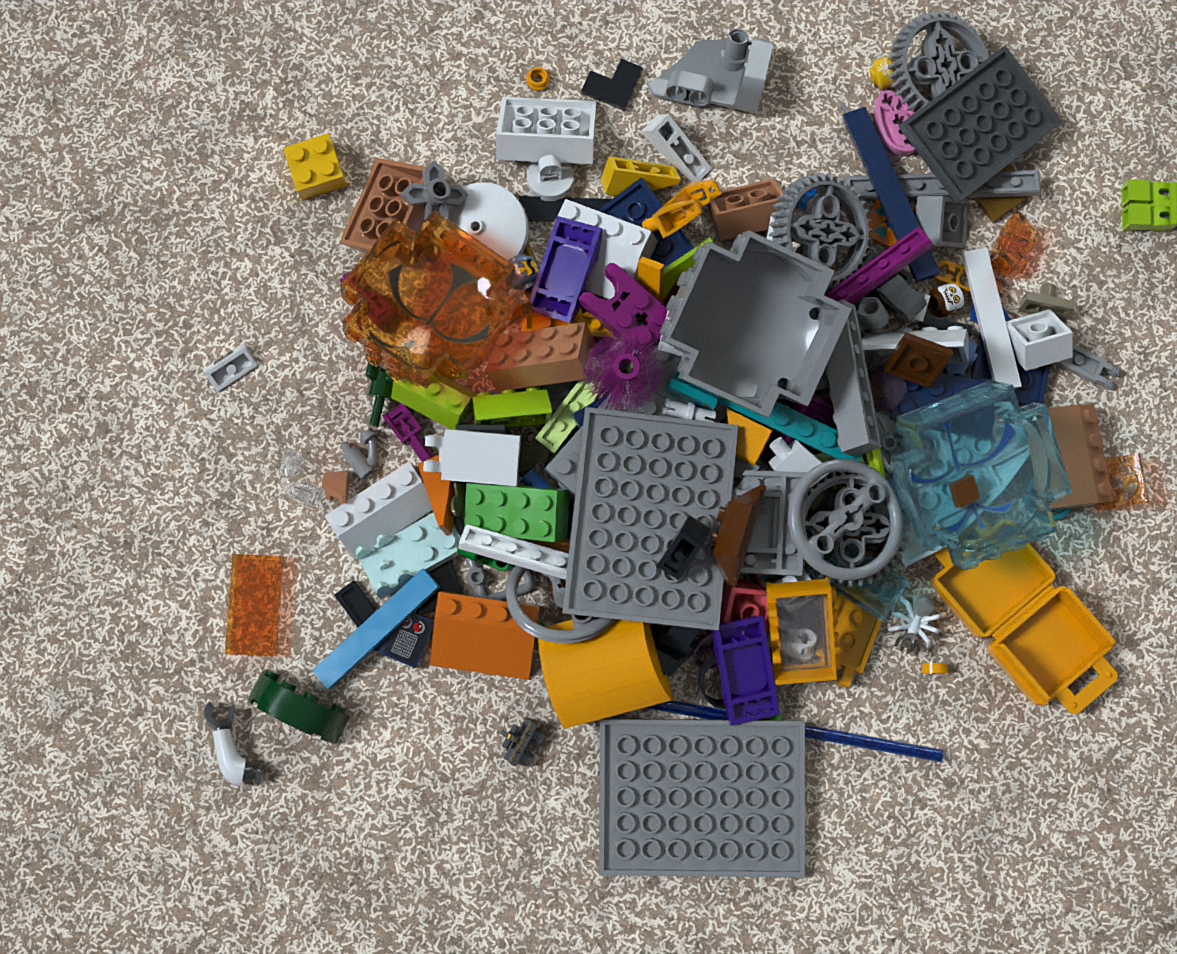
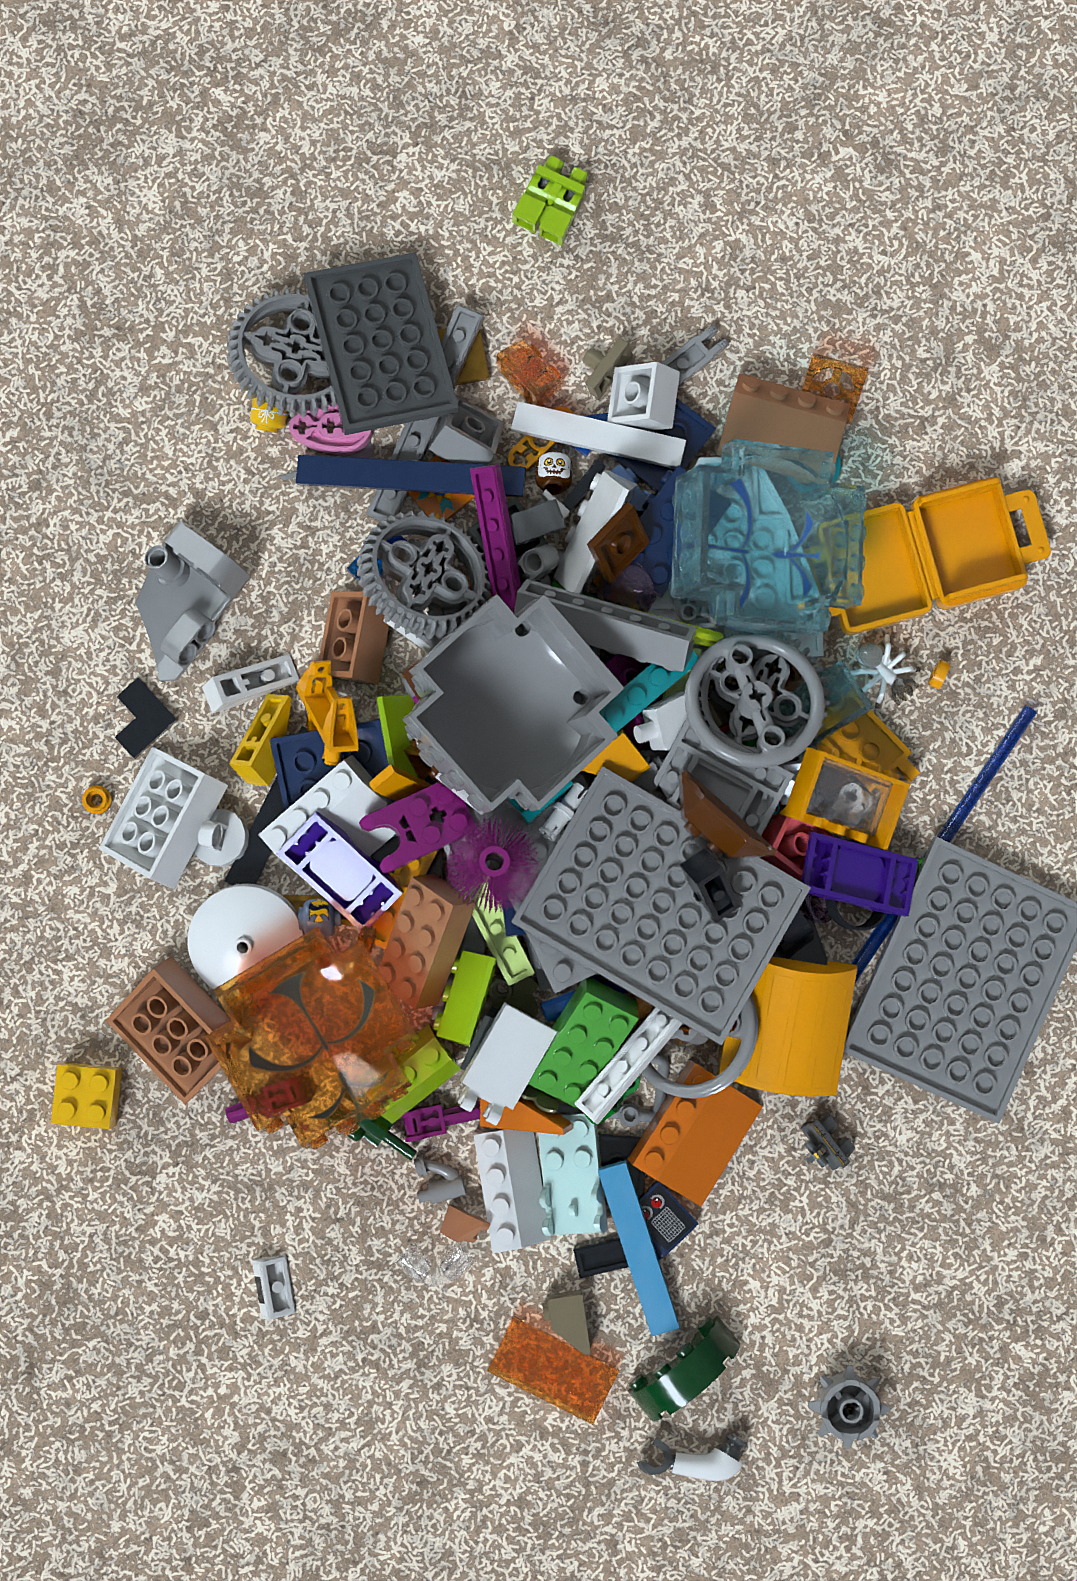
camera: 65 degrees left, 5 degrees up
(298, 599) = (568, 1318): none -> dark tan slope
(308, 857) = (841, 1422): none -> light grey brick
(434, 192) = (171, 971): light grey plant -> none
(964, 491) = (774, 558): dark orange tile -> none

